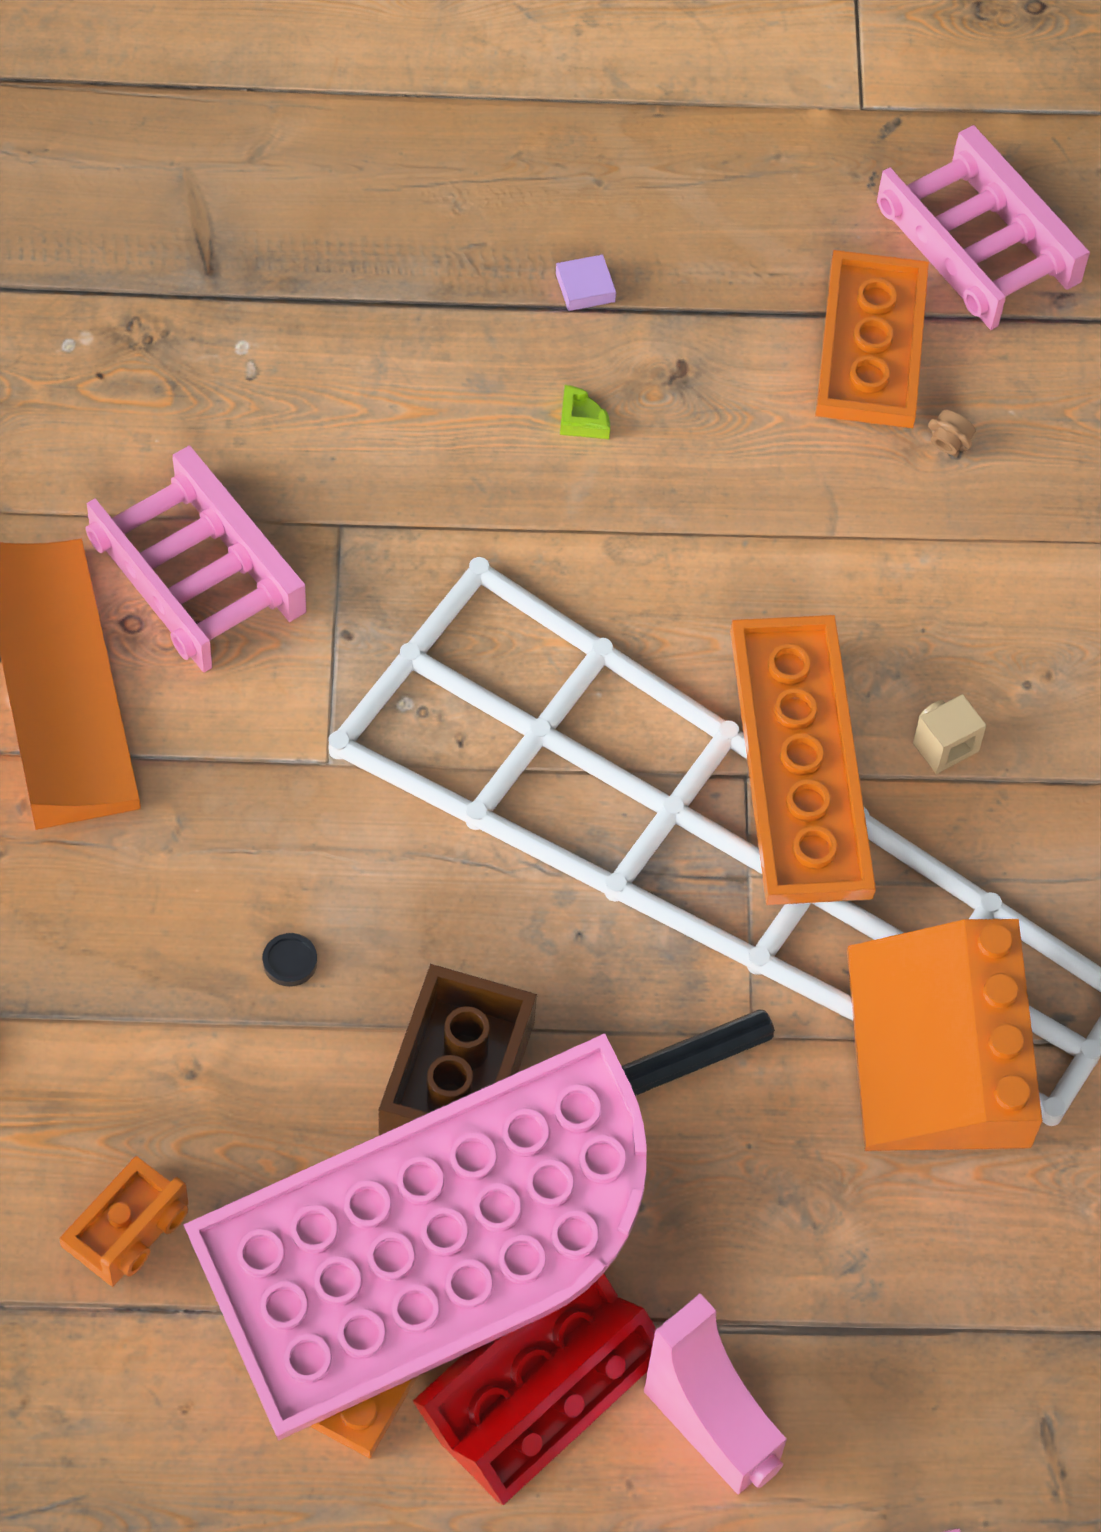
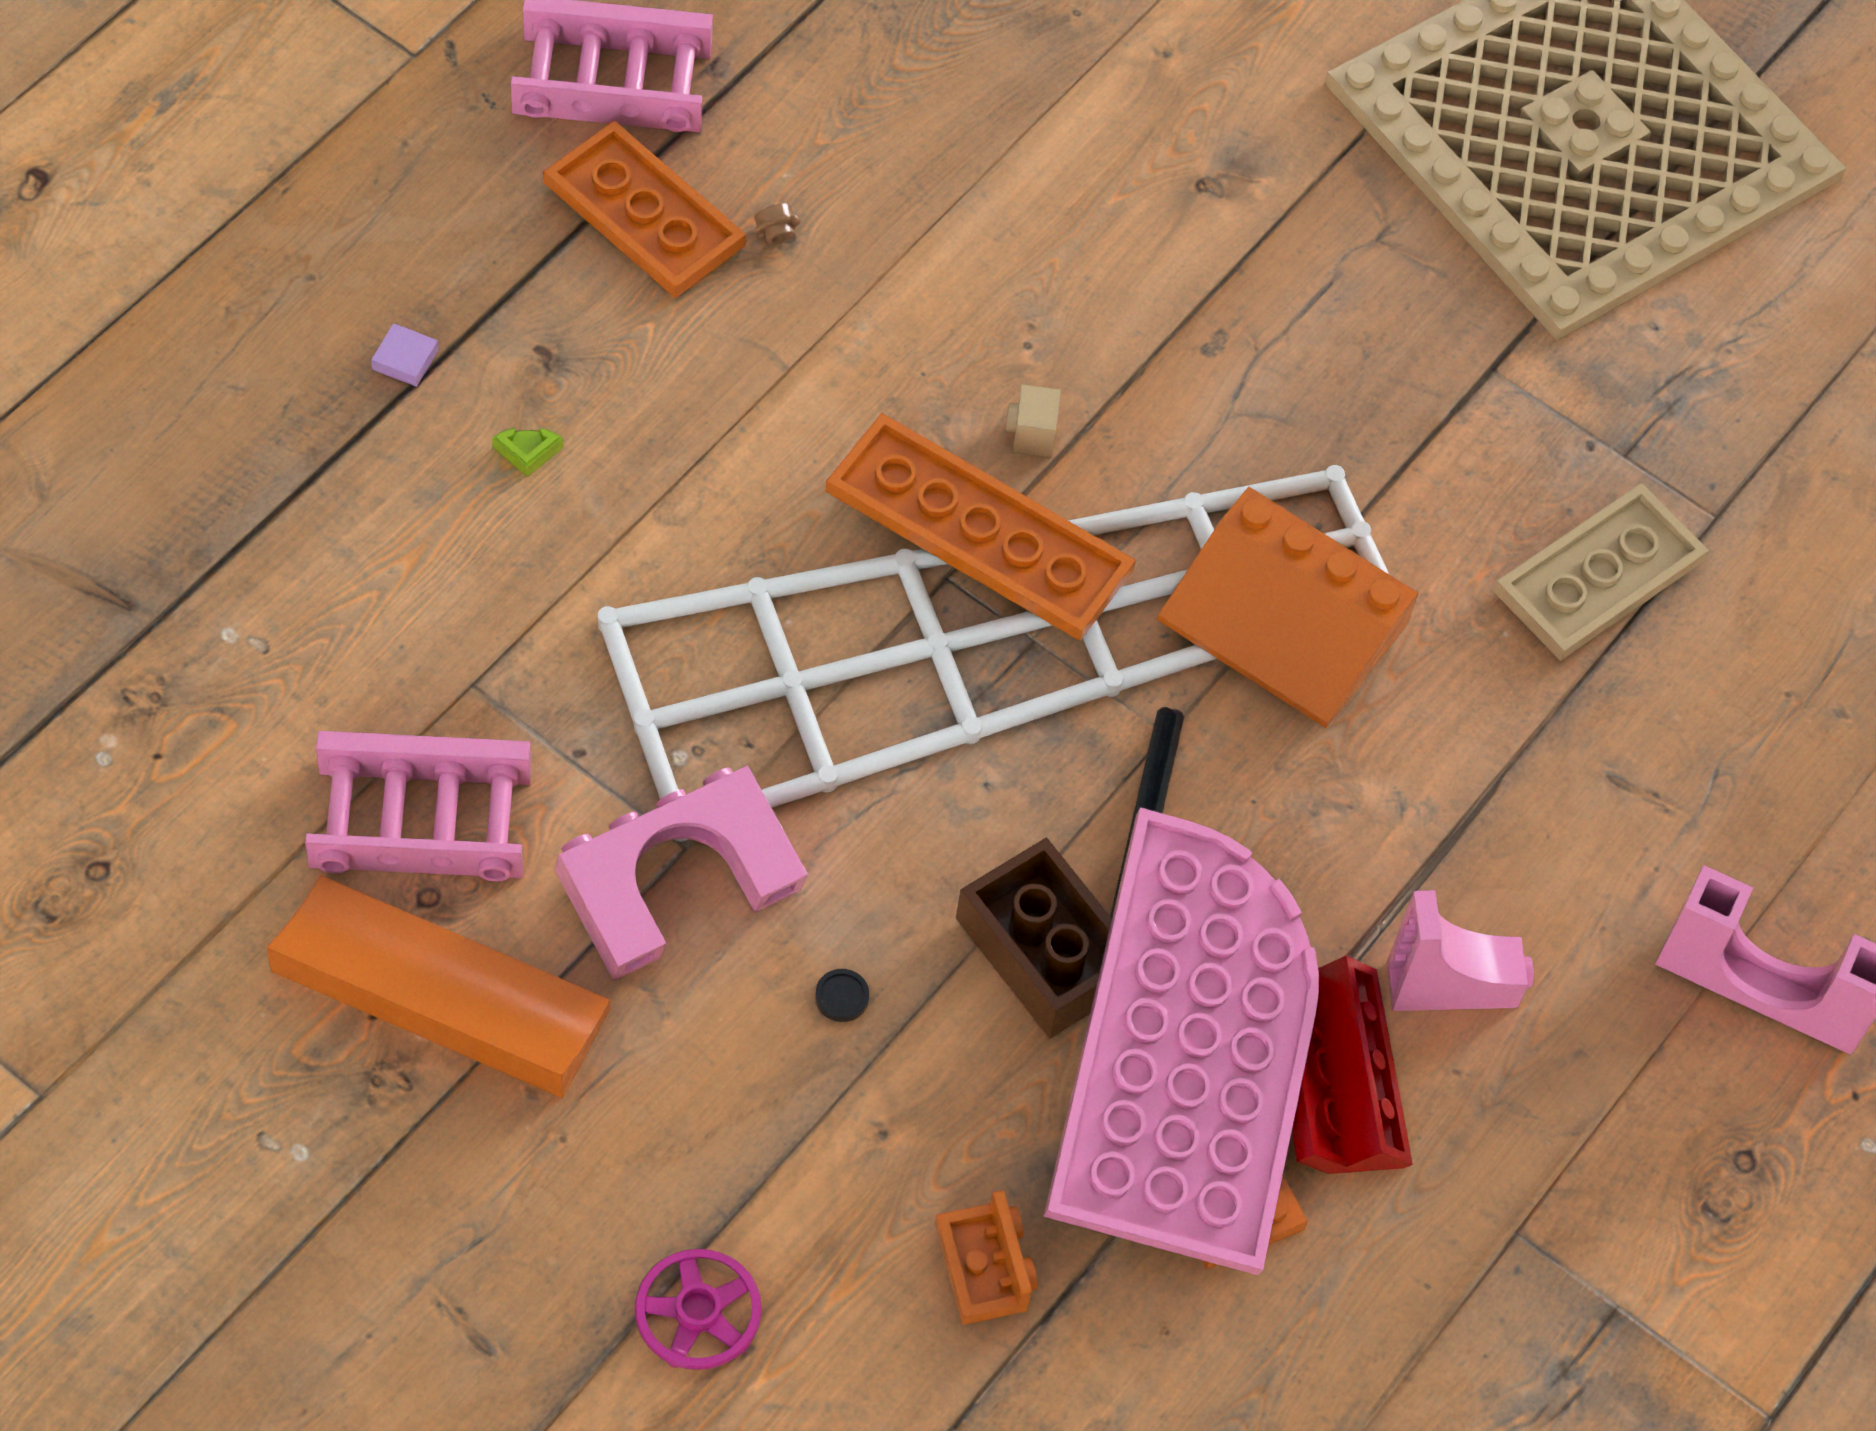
camera: 55 degrees left, 0 degrees up
(239, 712) = (724, 814): none -> bright pink arch

